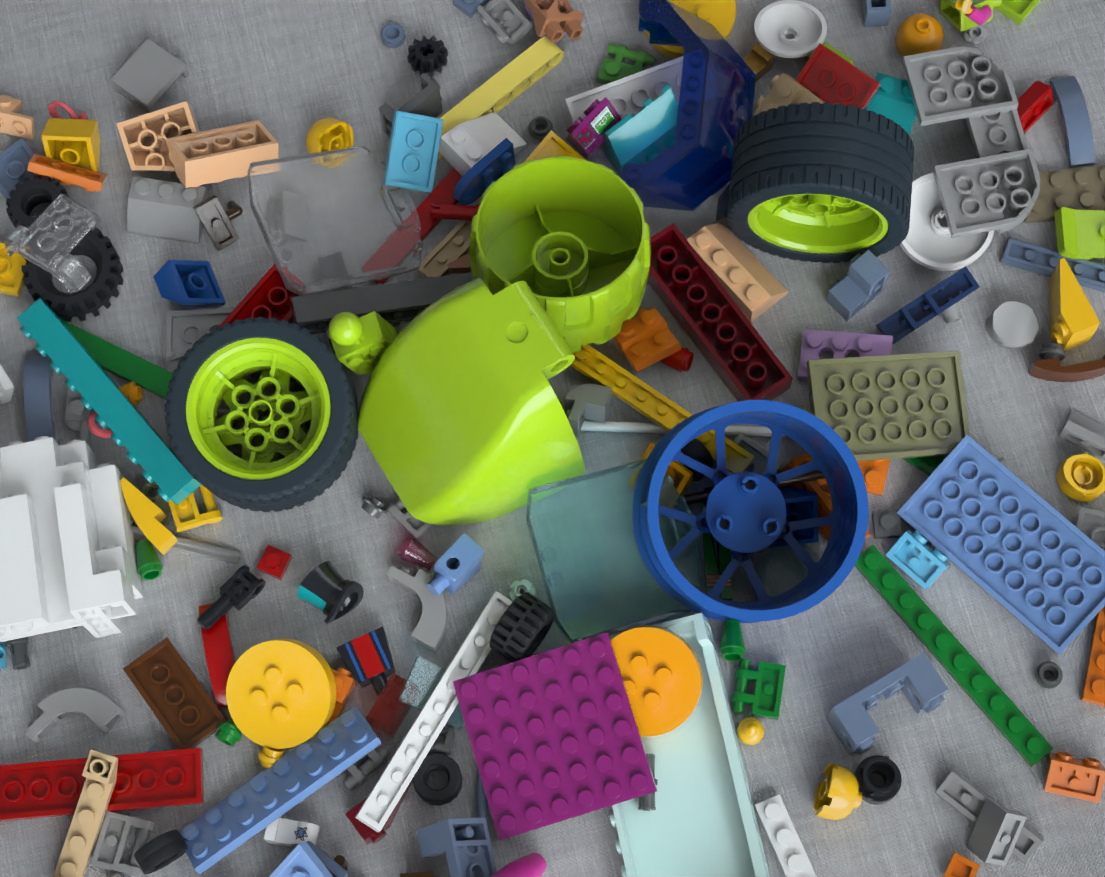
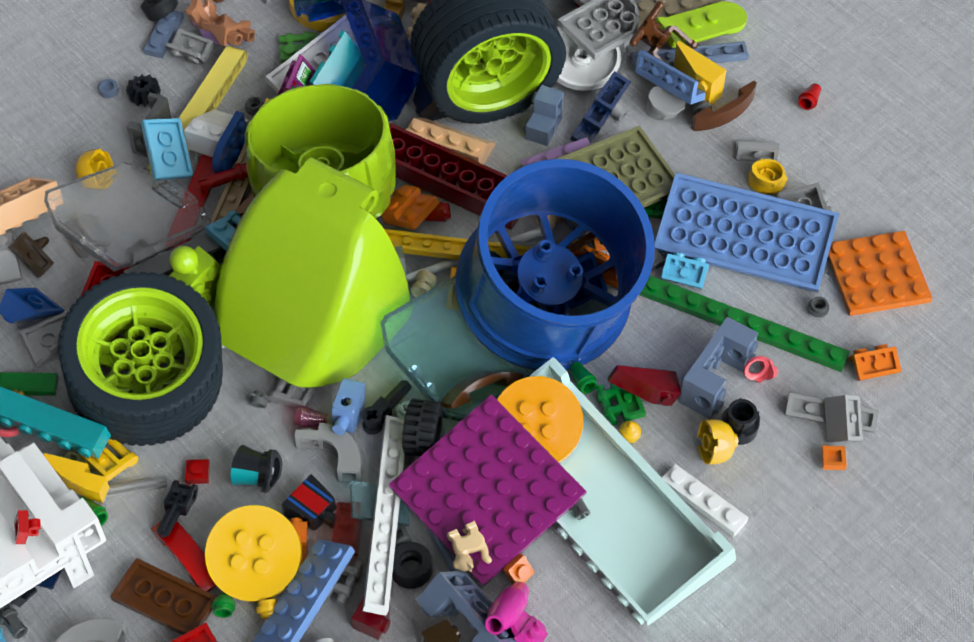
camera: 30 degrees left, 15 degrees down
(46, 581) = (25, 527): none -> red tile
(421, 287) = (222, 229): none -> medium azure plate
(498, 793) = (468, 544): none -> tan animal
(499, 578) = (375, 415): none -> black connector
(546, 840) = (518, 569): none -> orange plate
(608, 600) = (460, 393): none -> slope
(615, 445) = (424, 282): none -> tan wheel
(798, 689) = (651, 385): none -> dark red slope
(945, 730) = (768, 371): none -> coral piece
(1028, 301) = (668, 78): none -> medium blue fence
(1043, 238) = (656, 37): none -> reddish brown piece

